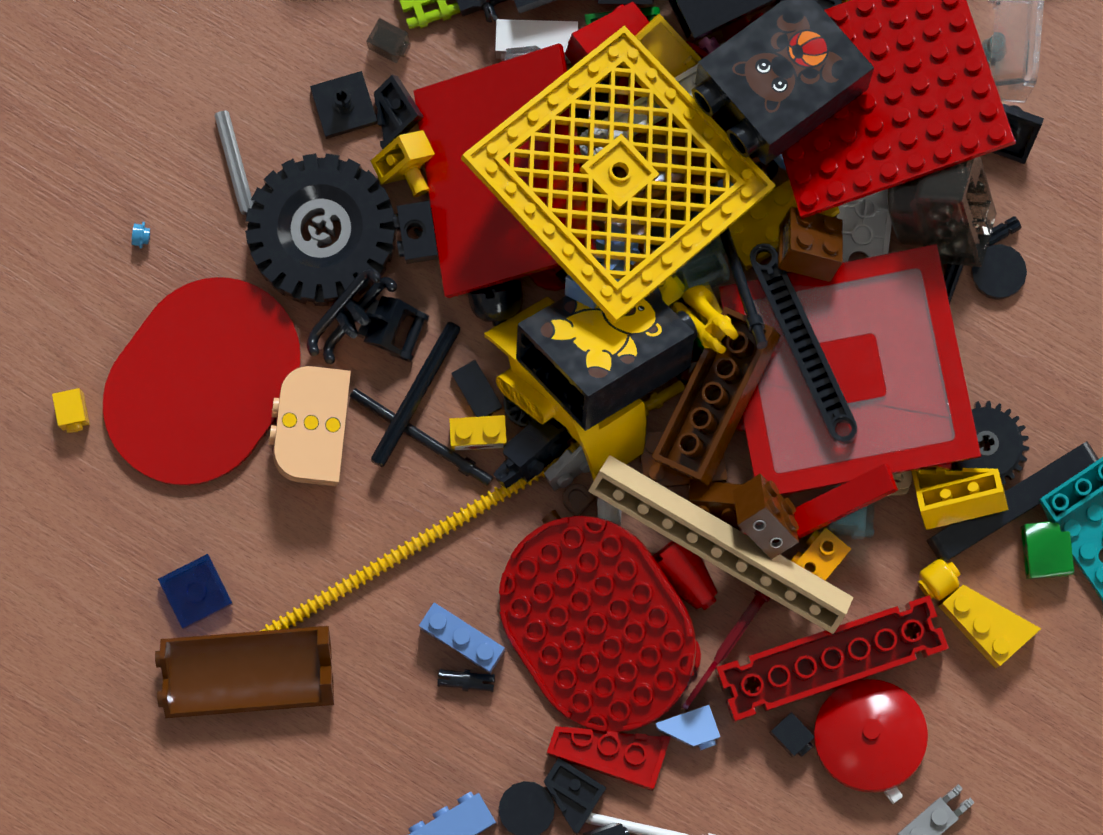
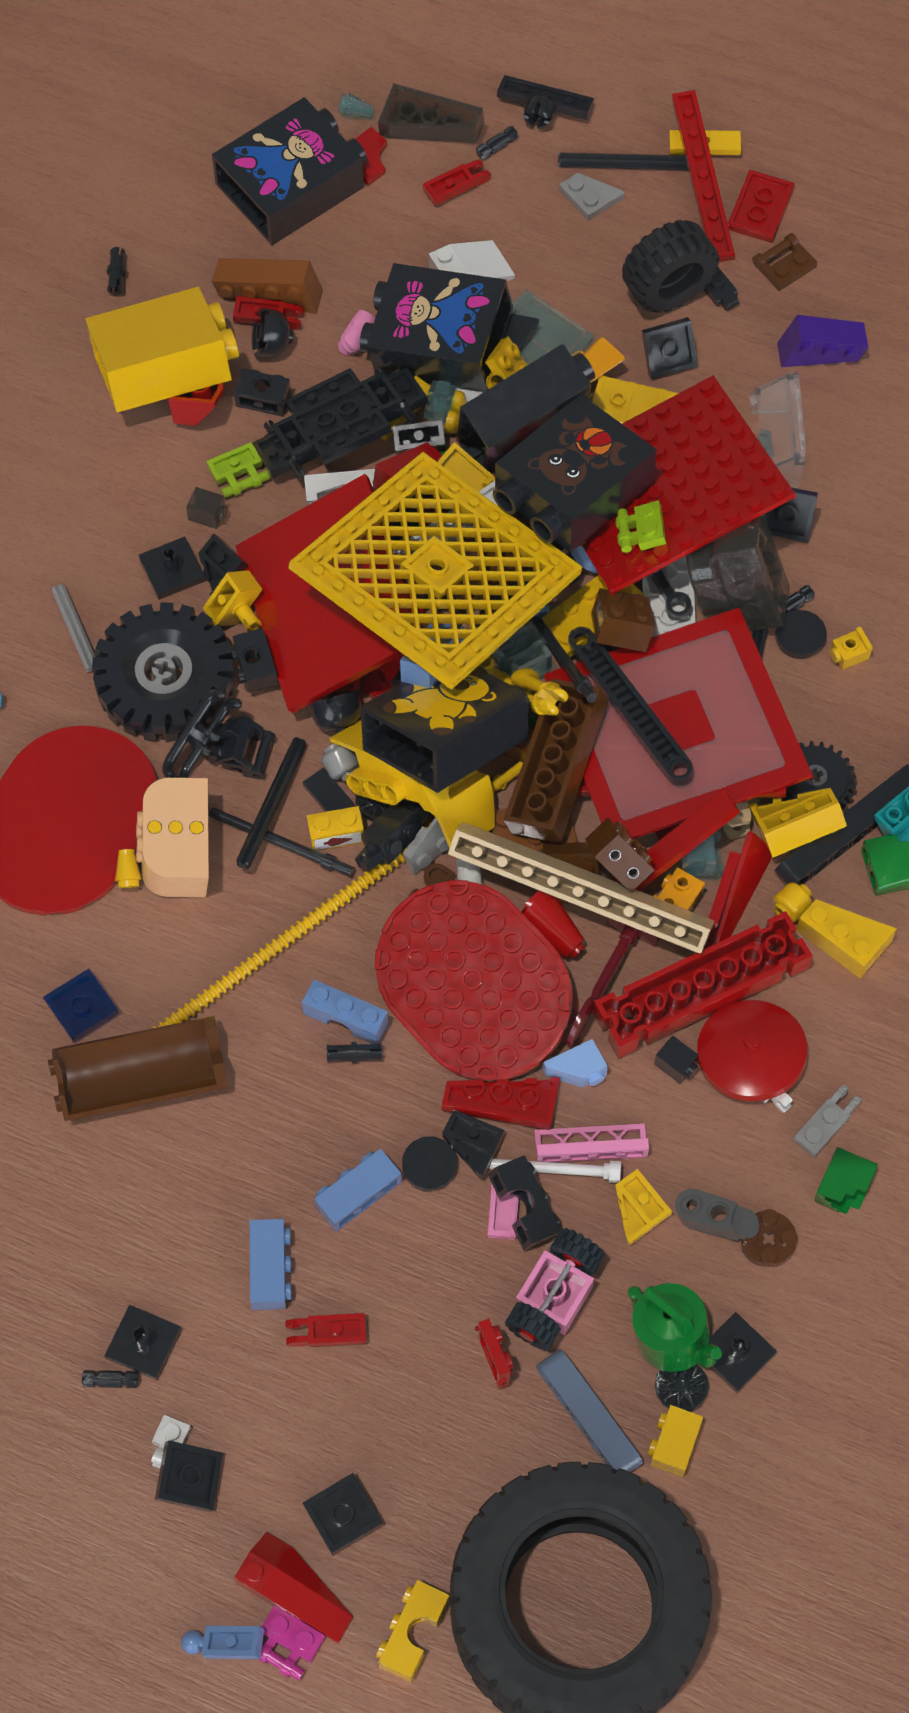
camera: 10 degrees left, 15 degrees down
(258, 450) = (127, 869): none -> yellow cone
(490, 358) = (339, 761): none -> light grey head
(697, 820) = (591, 1150): none -> bright pink fence
(854, 146) = (649, 525): none -> lime plate
(867, 215) = (670, 595): none -> black piece
(882, 555) = (737, 887): none -> red wedge
(1042, 307) = (859, 650): none -> yellow brick

